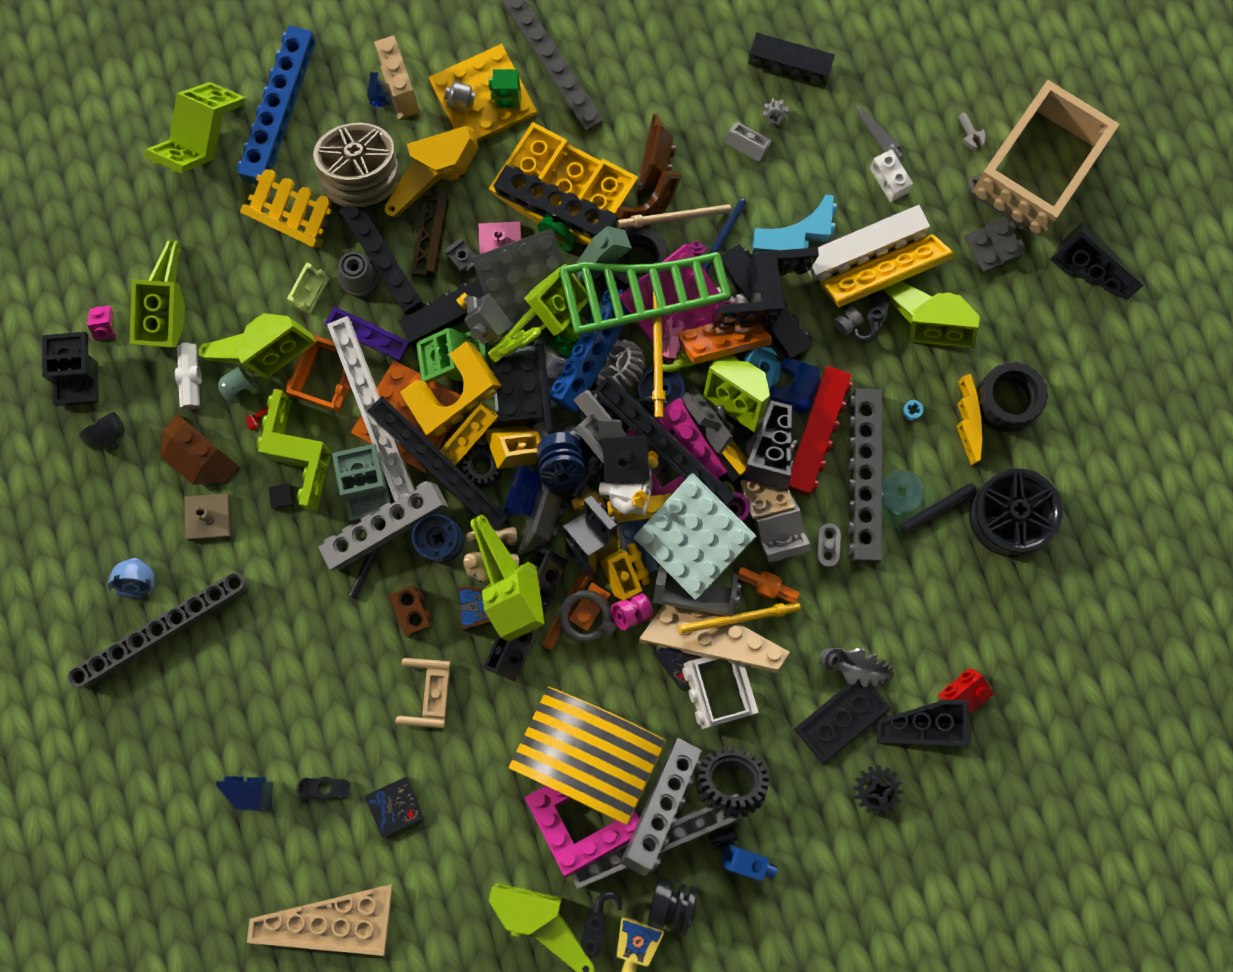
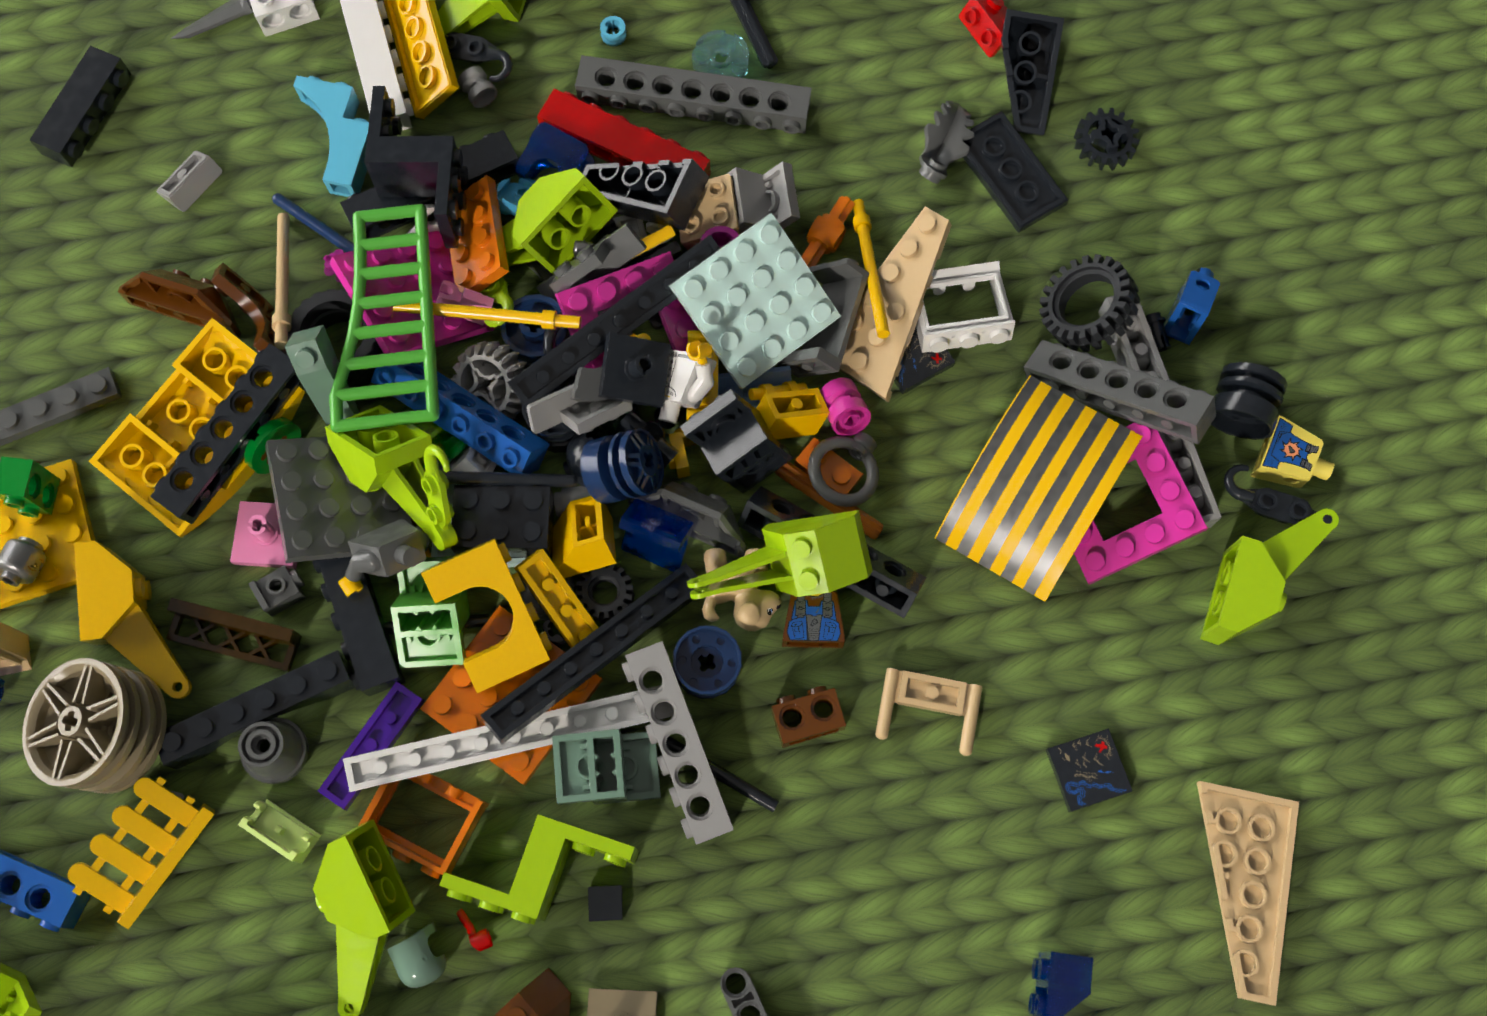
camera: 85 degrees left, 5 degrees down
(310, 787) = (1054, 849): black piece -> none
(776, 106) = (155, 135): light grey gear -> none
(829, 546) = (781, 150): light grey plate -> none

